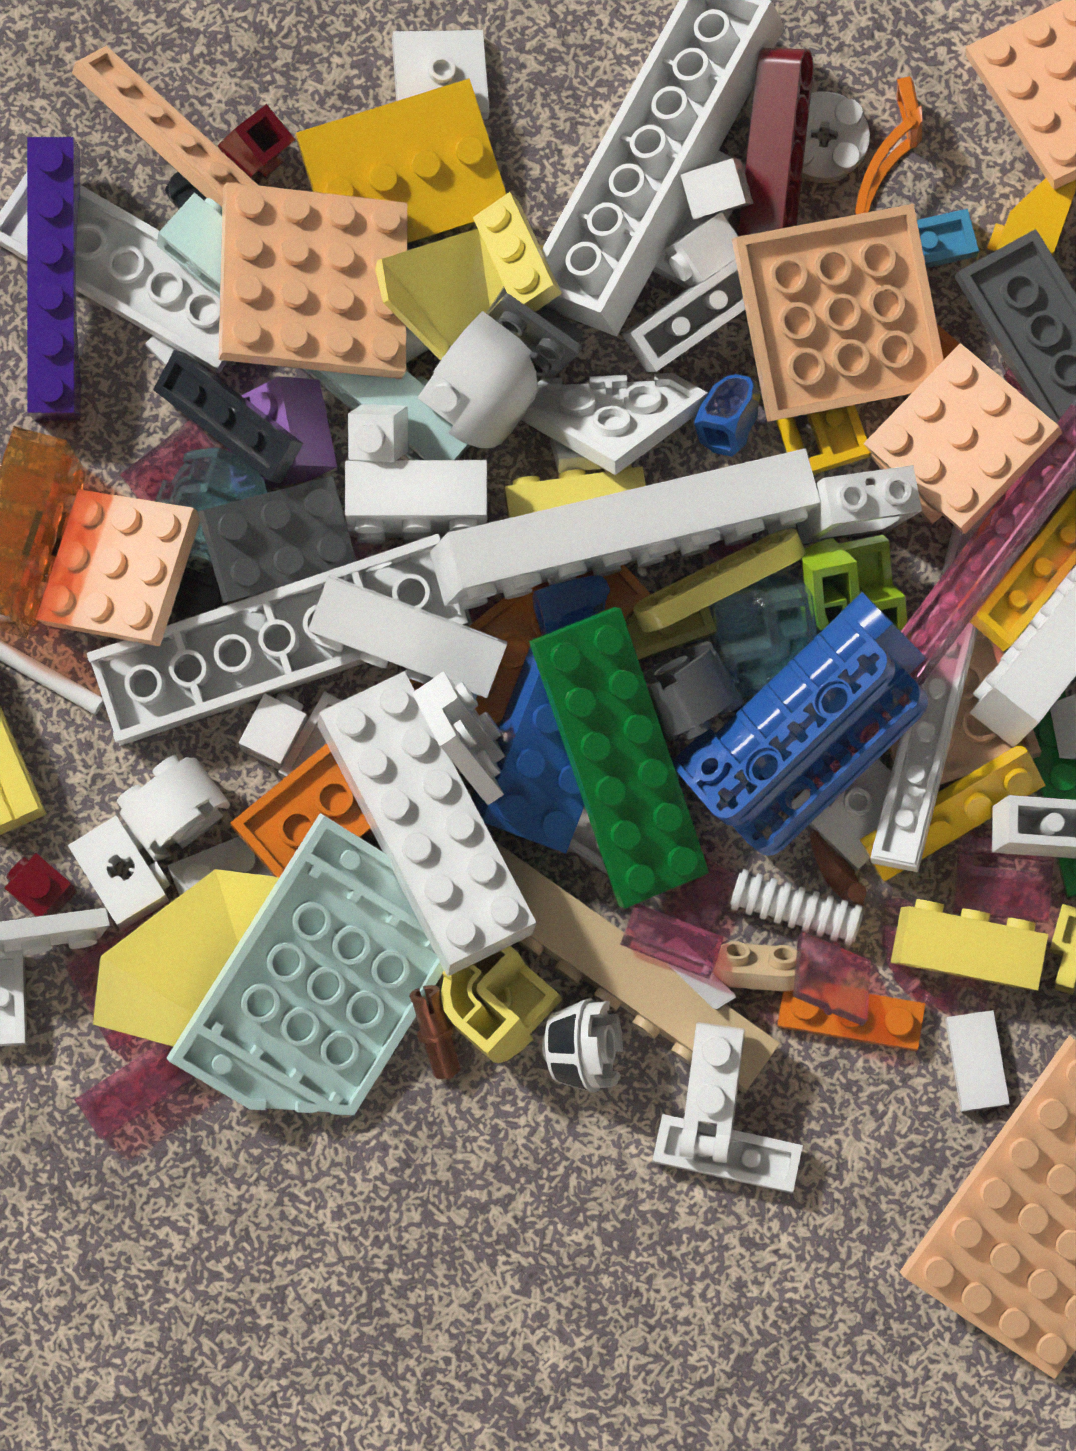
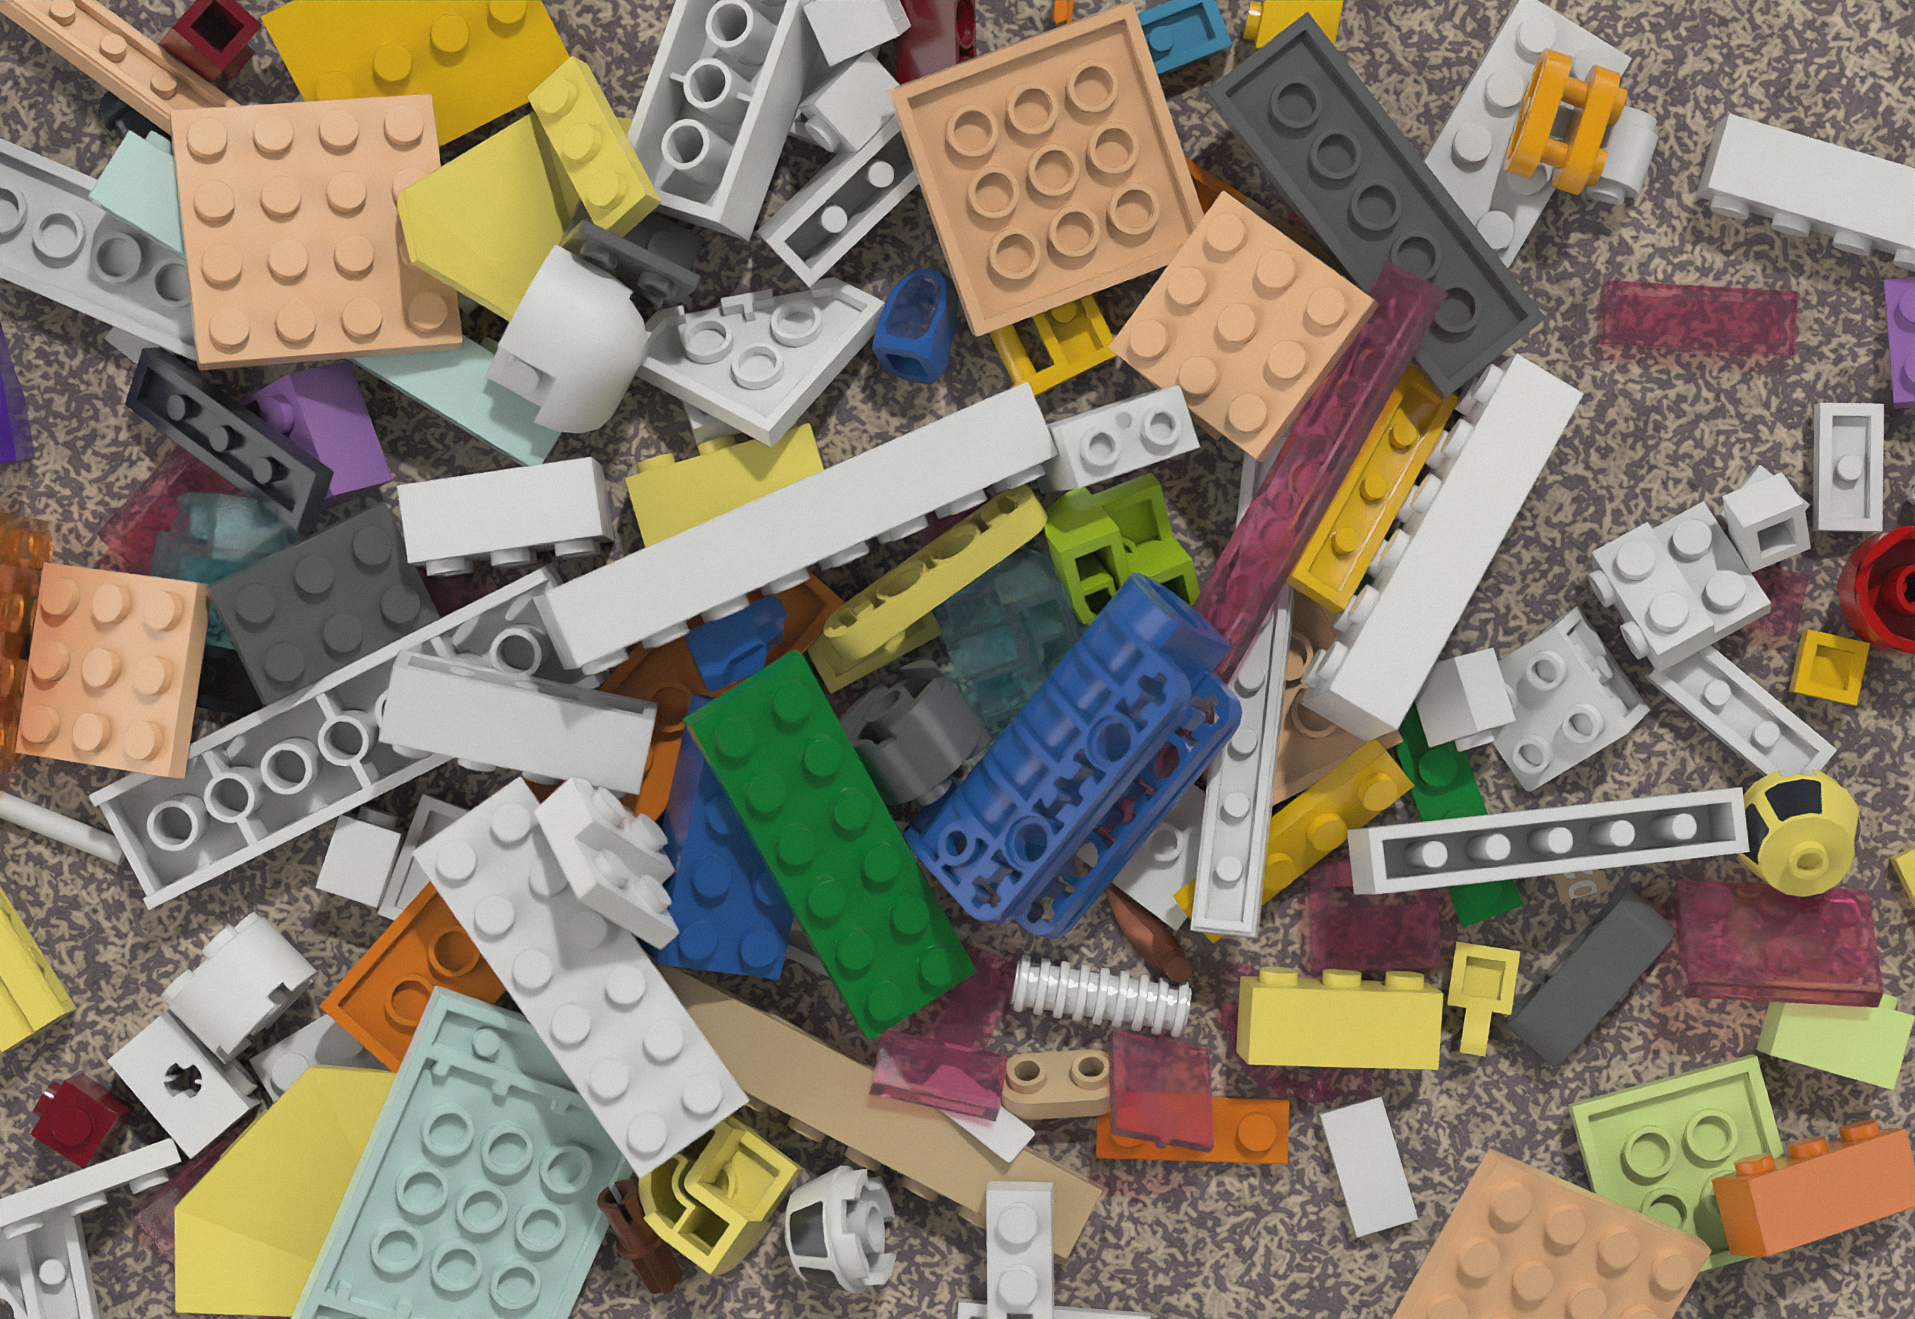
camera: 10 degrees left, 10 degrees up
(378, 432) = (437, 436): white brick -> none

